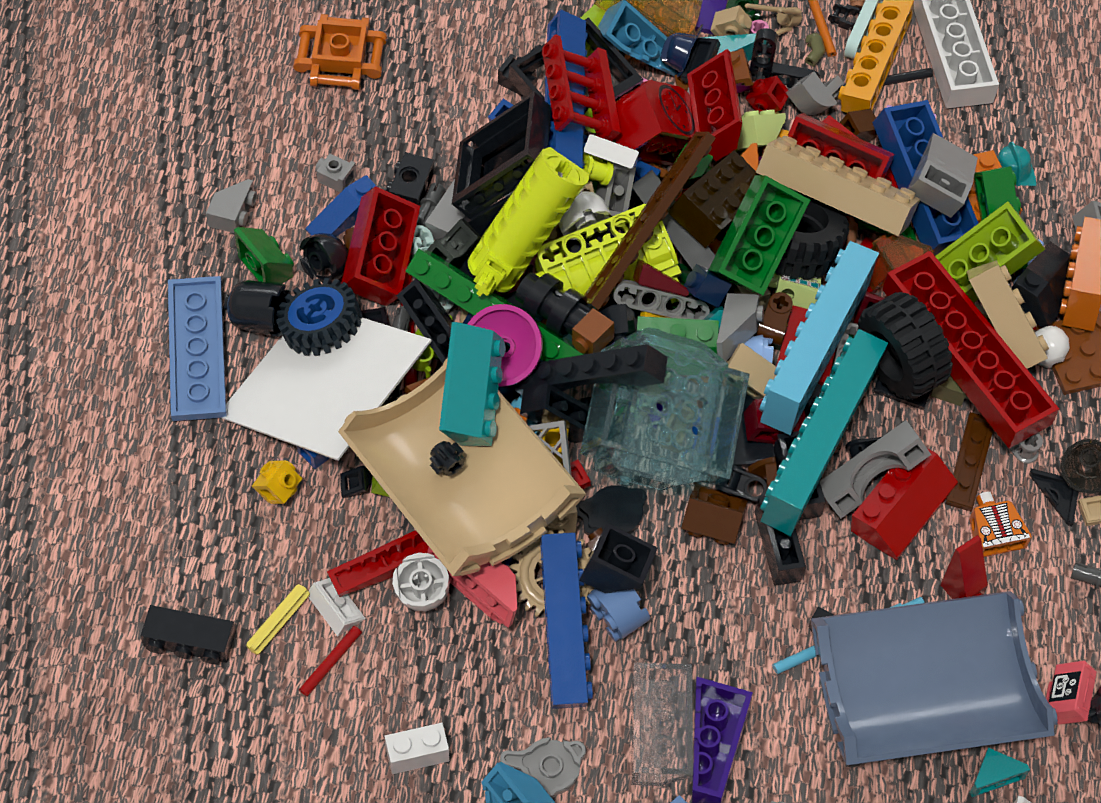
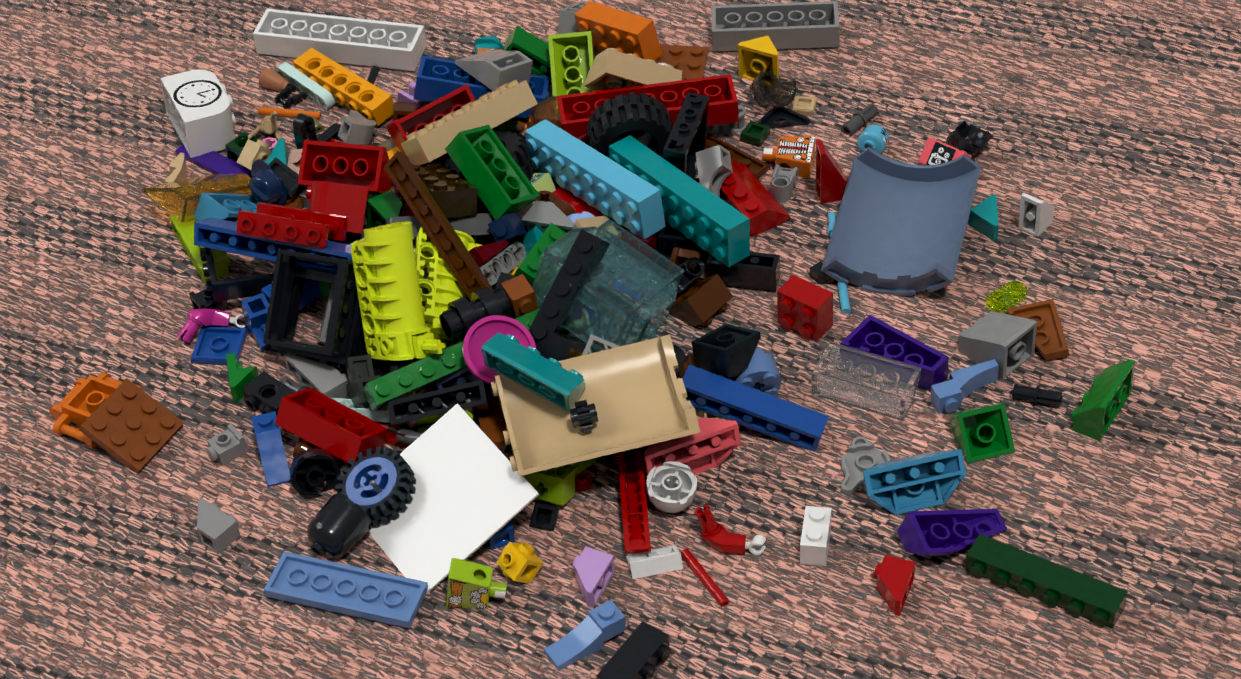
camera: 60 degrees left, 15 degrees down
(208, 579) = (588, 636): none -> medium blue slope
(224, 434) = (472, 585): none -> lime torso
(263, 255) = (285, 516): green slope -> none
(277, 619) = (648, 601): light yellow axle -> none
(287, 553) = (593, 573): none -> lavender slope
(322, 85) = (131, 426): none -> dark orange plate
(383, 656) = (724, 541): none -> red arm
(427, 141) = (239, 376): none -> green slope
(466, 109) = (216, 342): none -> blue tile
(487, 79) = (206, 317): none -> dark pink arm
(611, 151) = (356, 231): white slope -> none
(739, 622) = (805, 308): none -> red brick
(918, 393) = (688, 134): none -> black window
(952, 531) = (783, 183): none -> light grey piece
(1016, 474) = (755, 133): none -> dark green plate
(1066, 604) = (873, 137): none -> medium azure head

